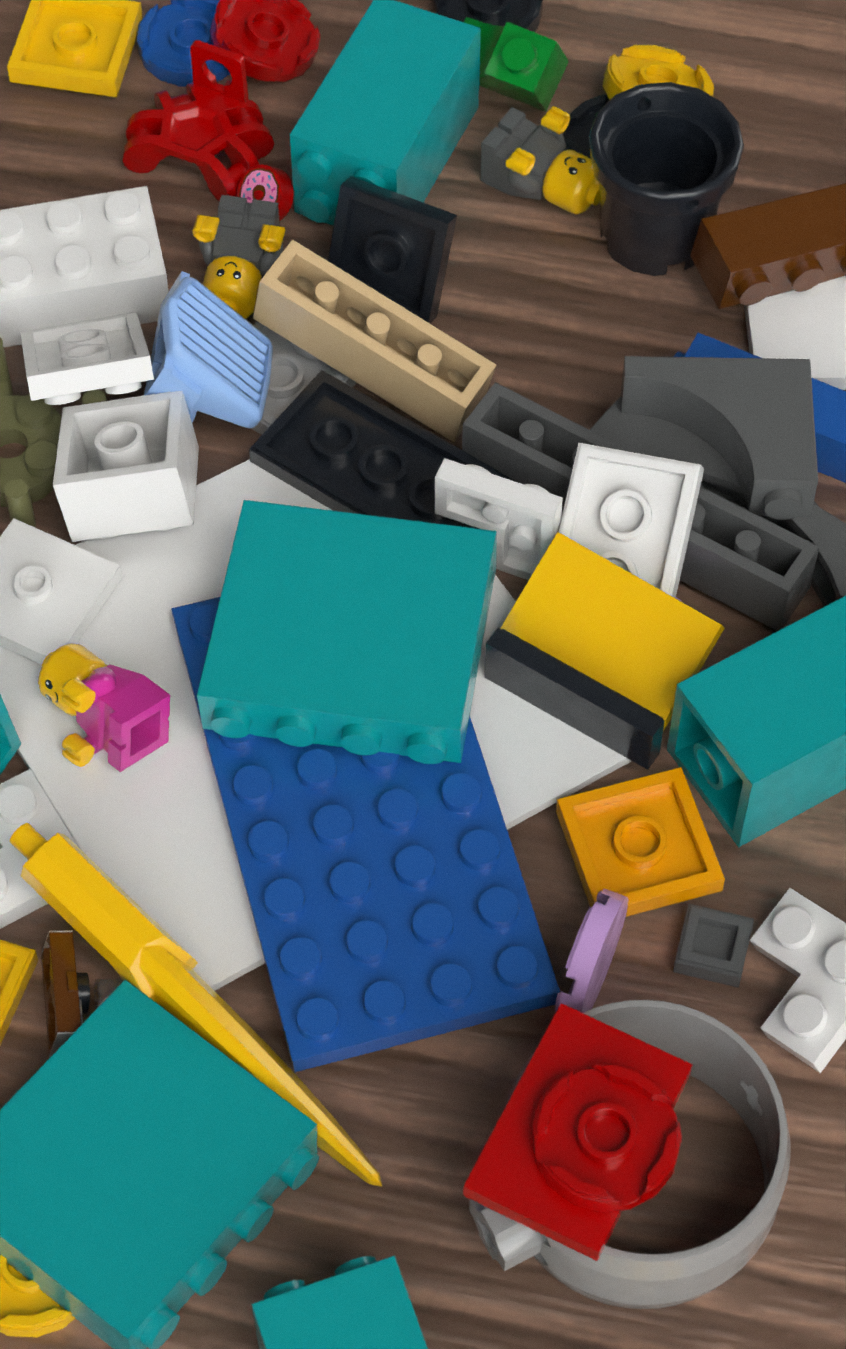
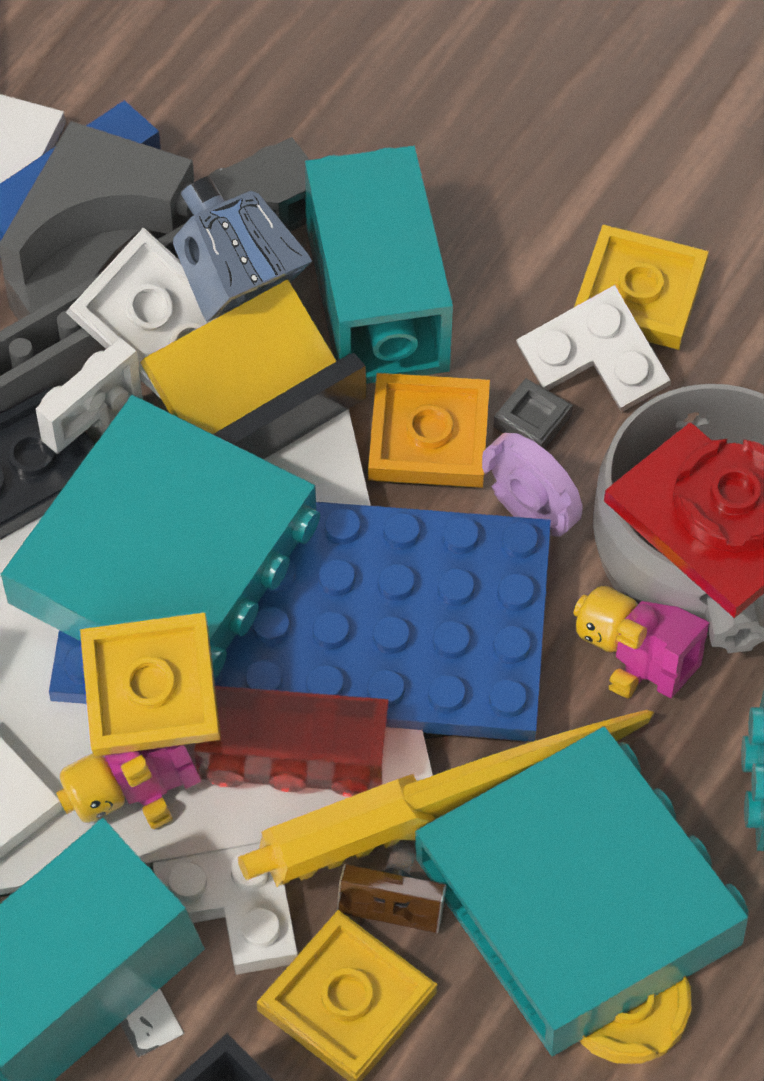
camera: 70 degrees left, 0 degrees up
(158, 662) = (149, 684): none -> yellow plate
(187, 834) = (296, 741): none -> clear red brick
(463, 1118) = (648, 637): none -> piece
(723, 557) = (234, 248): none -> sand blue torso

